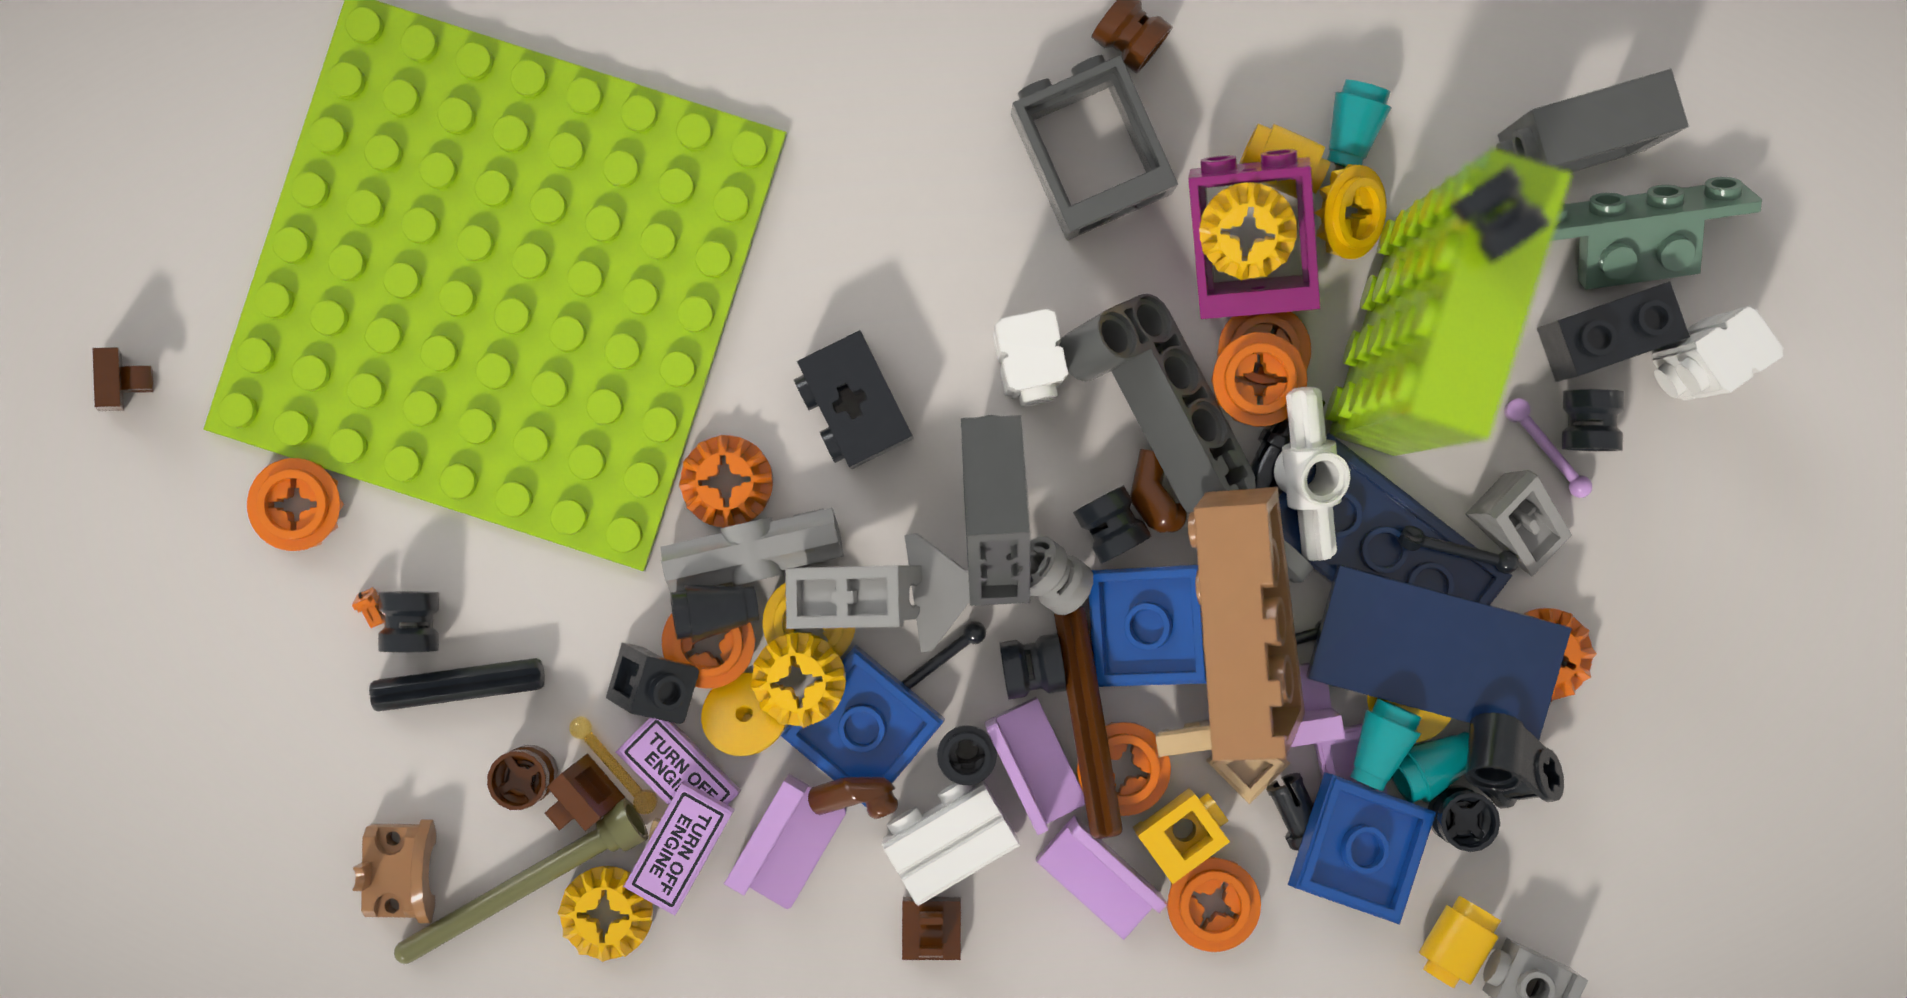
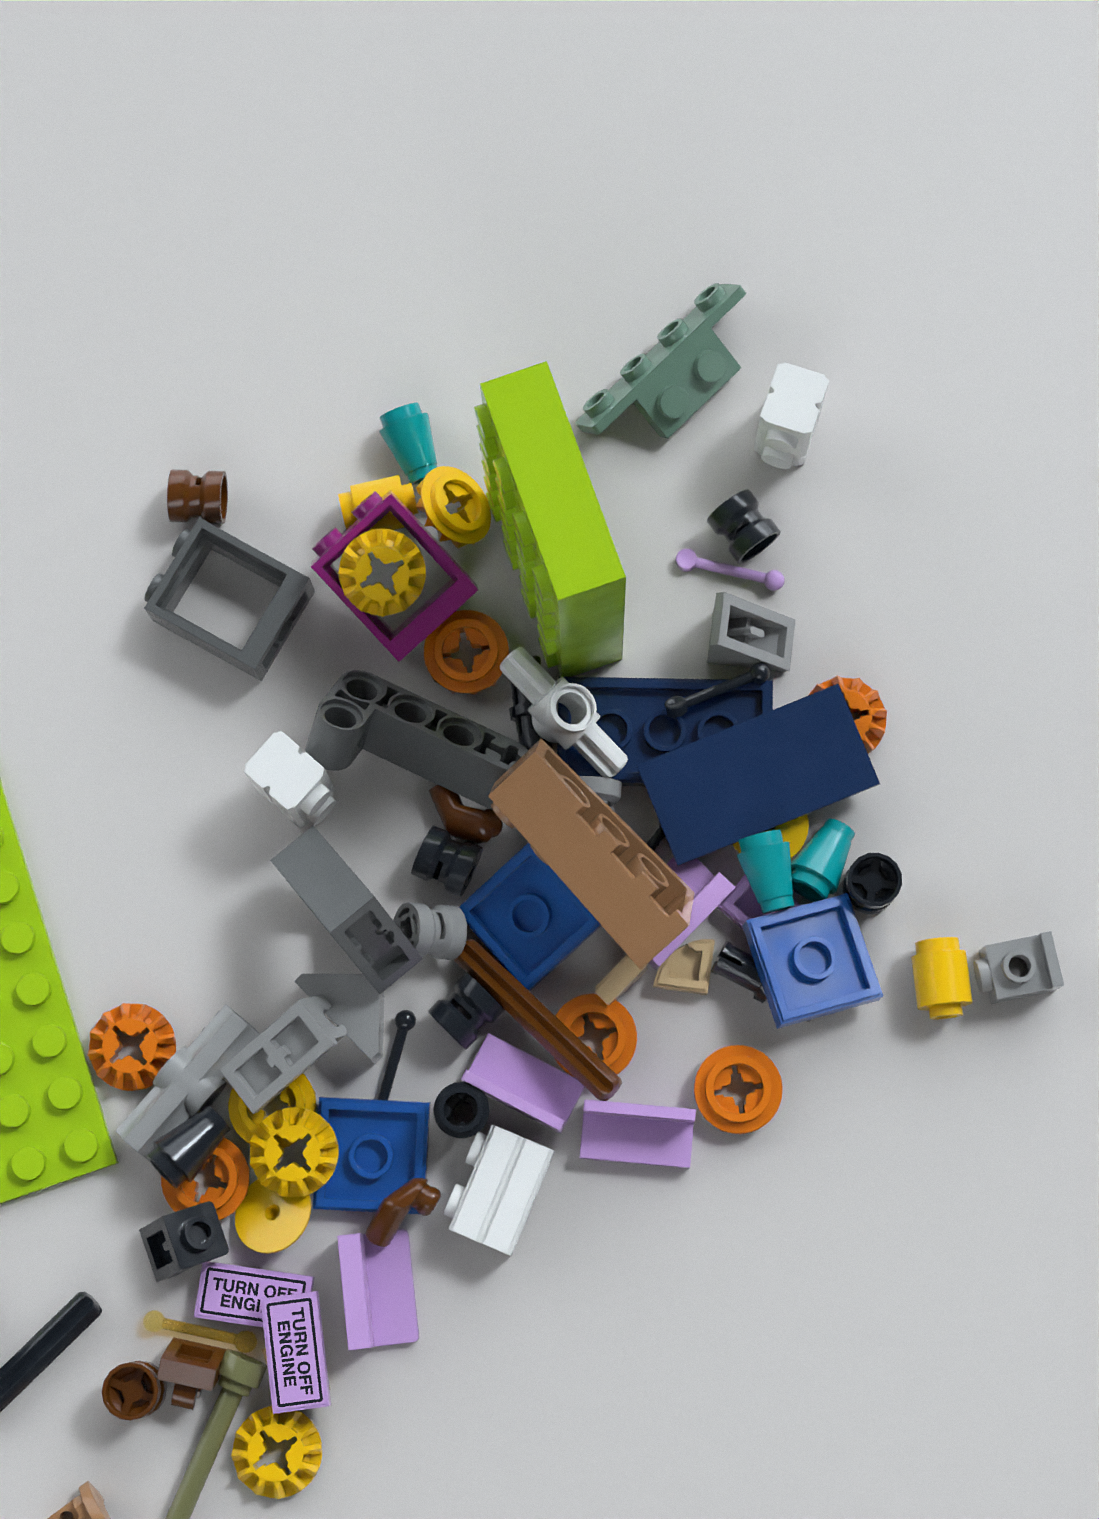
camera: 30 degrees left, 10 degrees down
(852, 366) = (163, 889): black brick -> none
(931, 929) = (538, 1271): reddish brown tile -> none
(1182, 855) = (666, 1073): yellow brick -> none
(1238, 359) = (449, 671): orange gear -> none
(1508, 228) = (525, 424): black wheel -> none
(1511, 762) = (870, 813): black piece -> none
(1599, 124) = (583, 320): dark grey window -> none
(1613, 332) = (707, 453): black brick -> none

